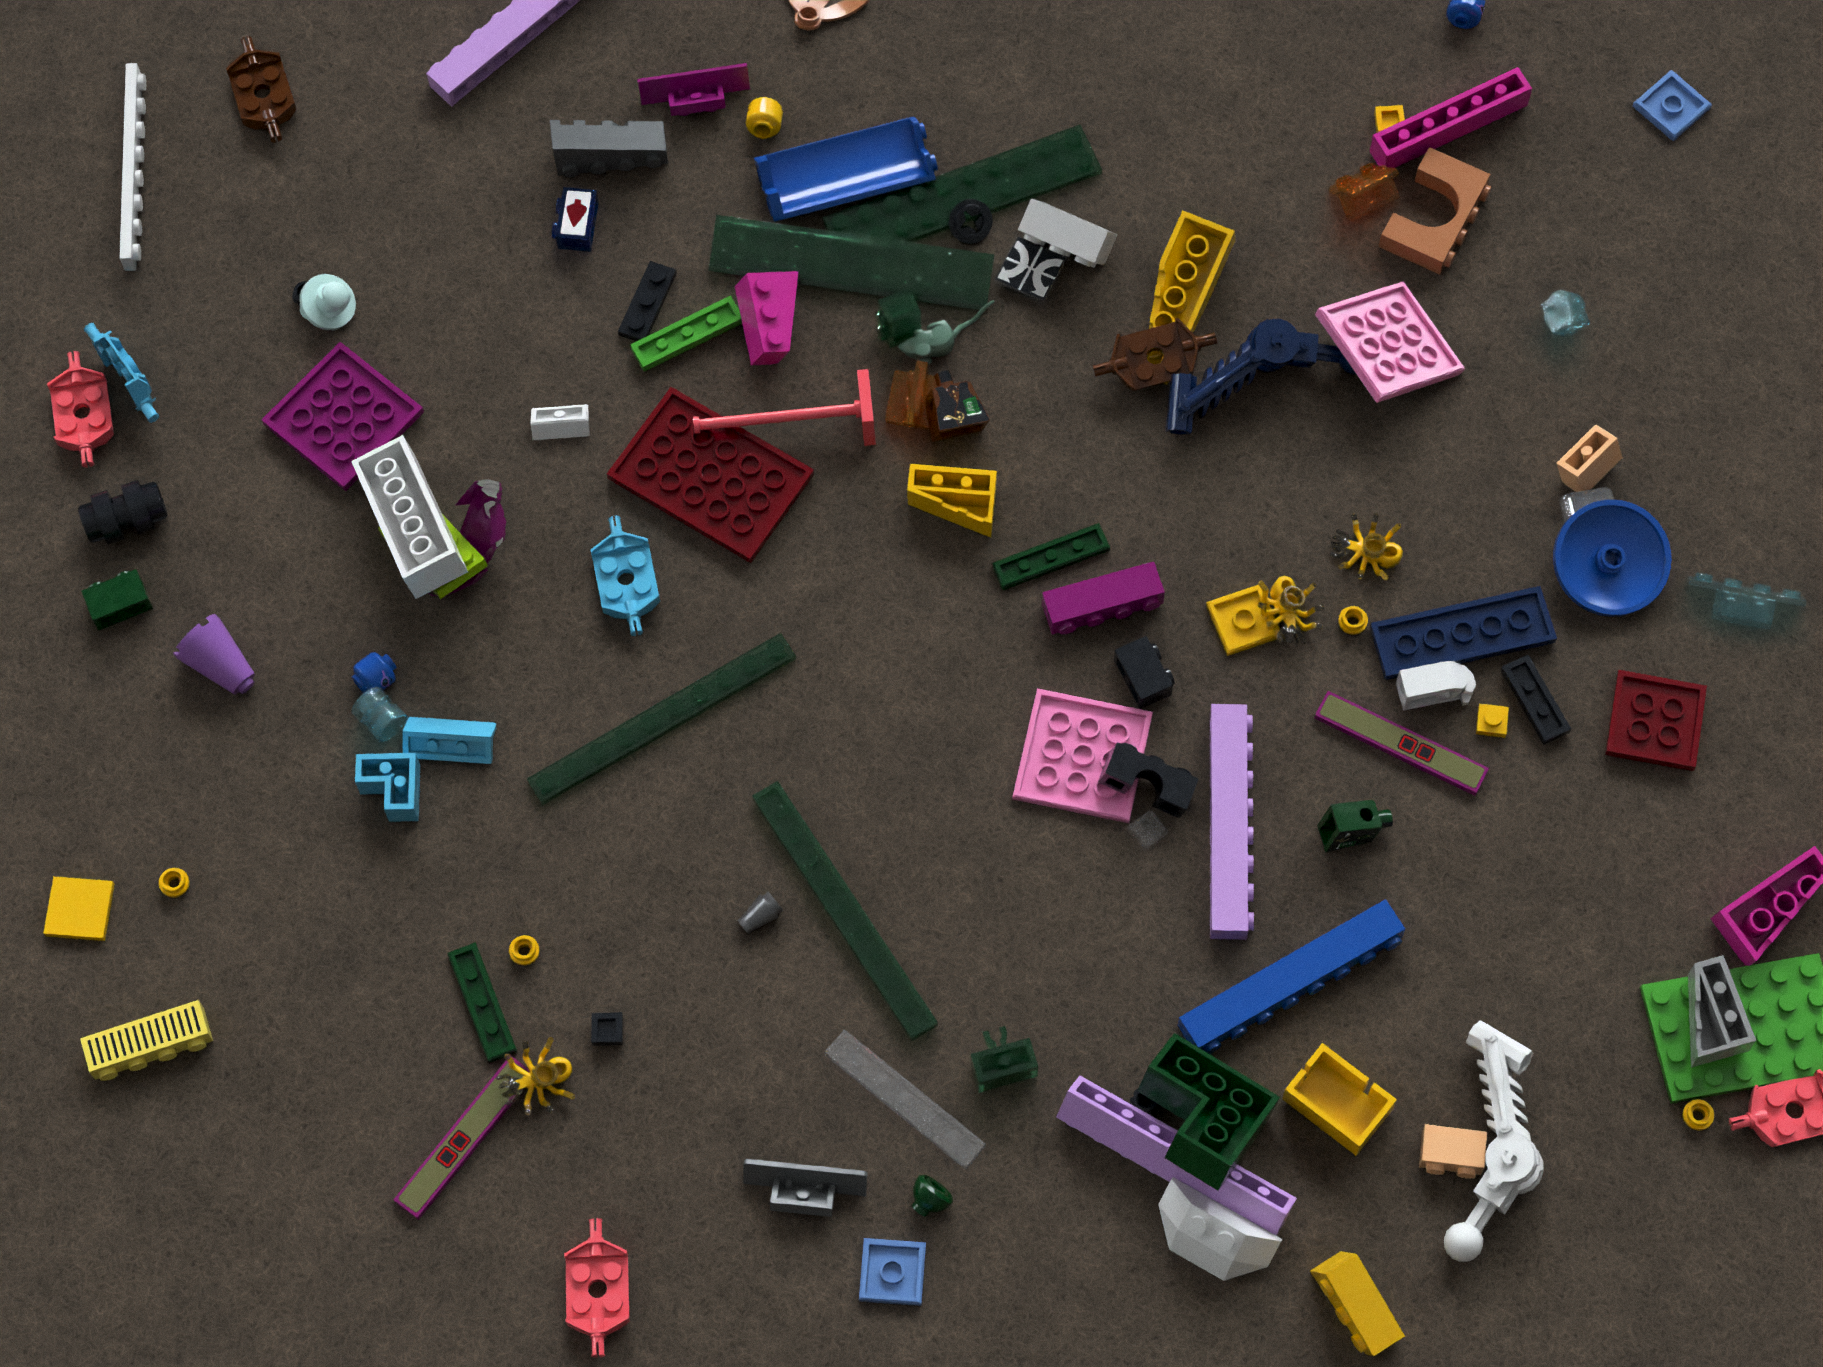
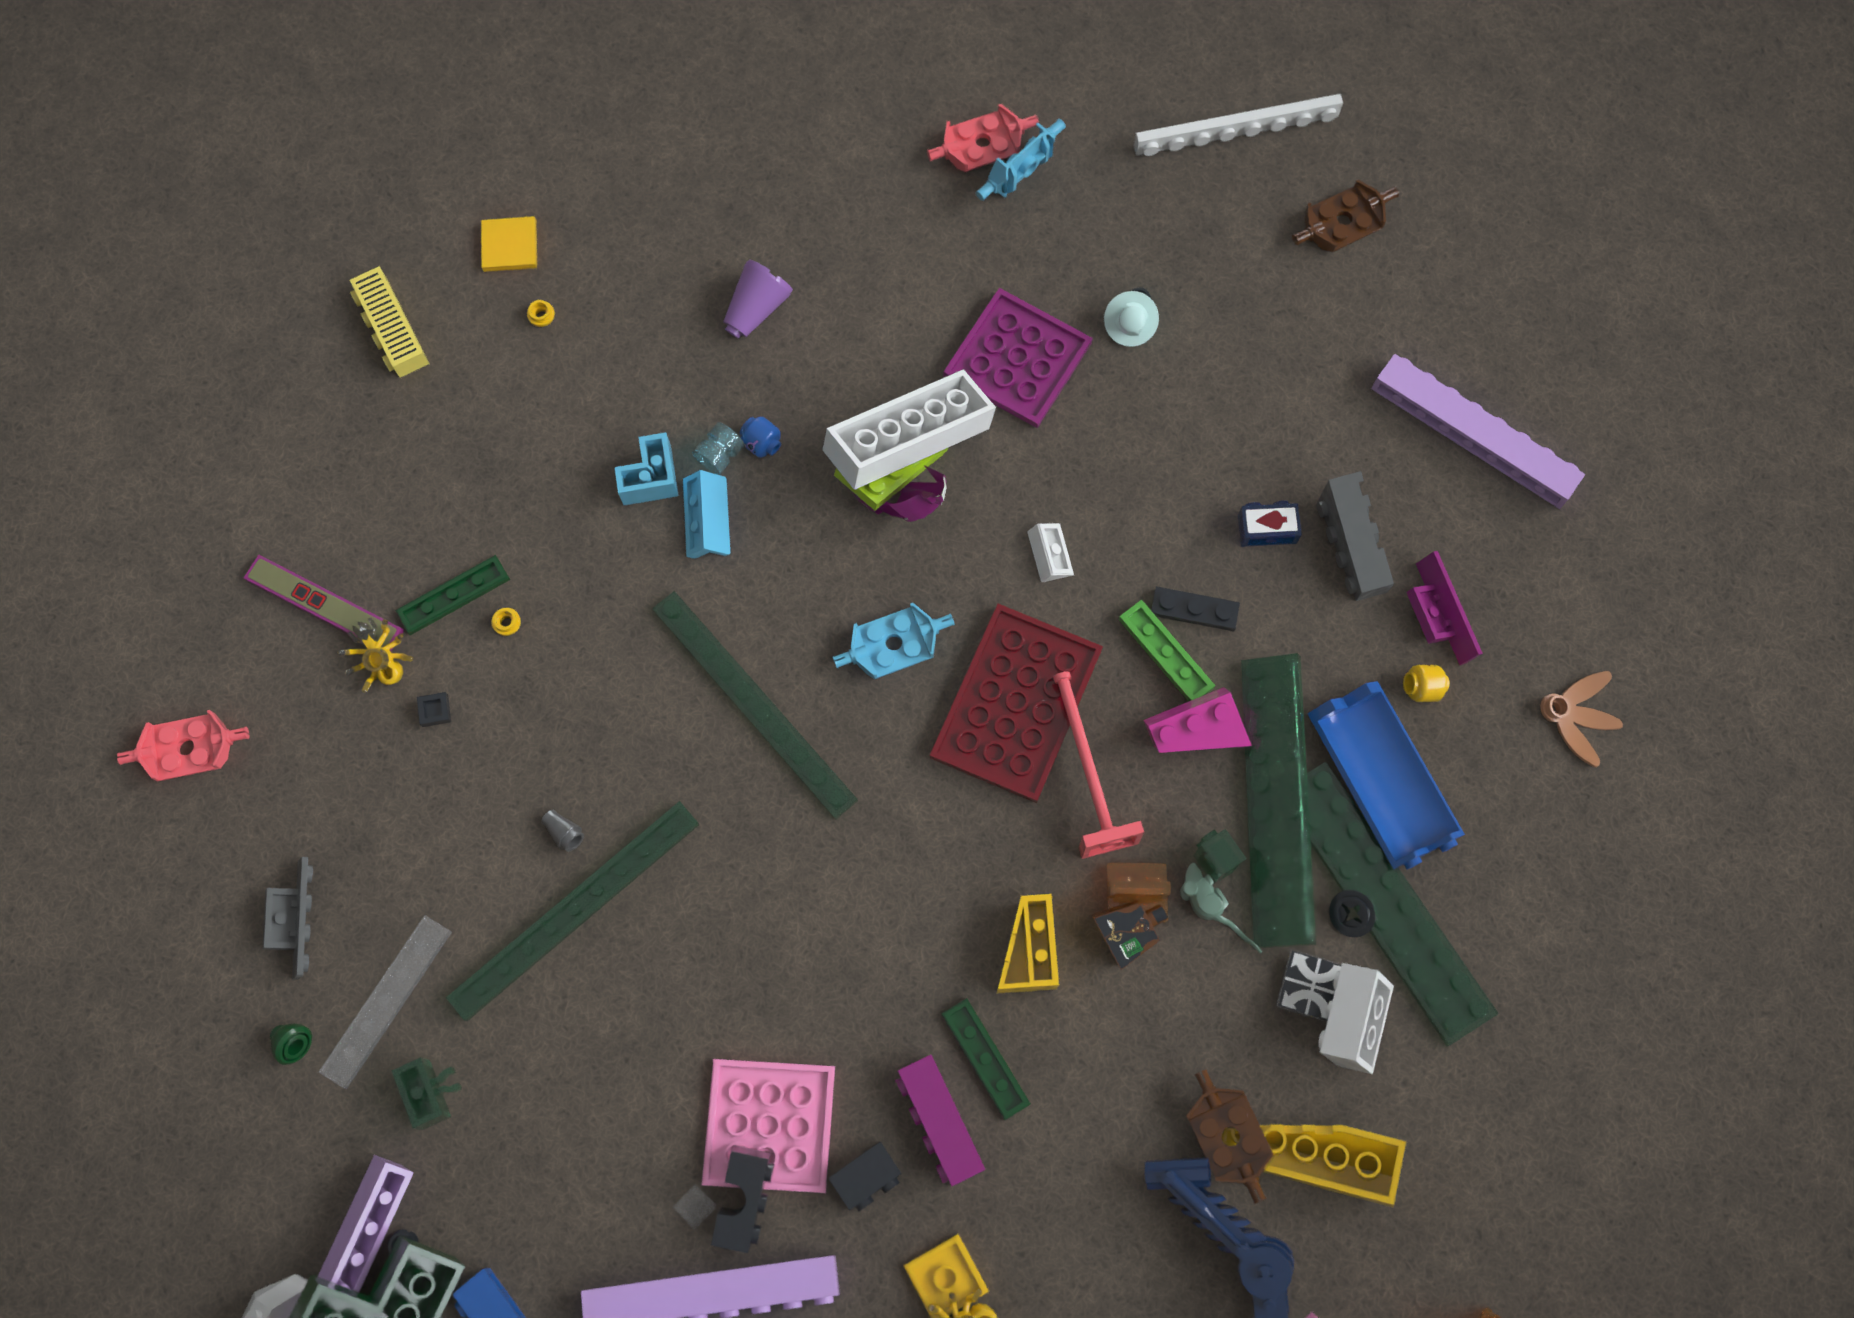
camera: 80 degrees right, 5 degrees up
(109, 516) = (887, 198): black piece -> none
(117, 599) = (801, 207): dark green brick -> none
(892, 1271) = (216, 1017): medium blue tile -> none

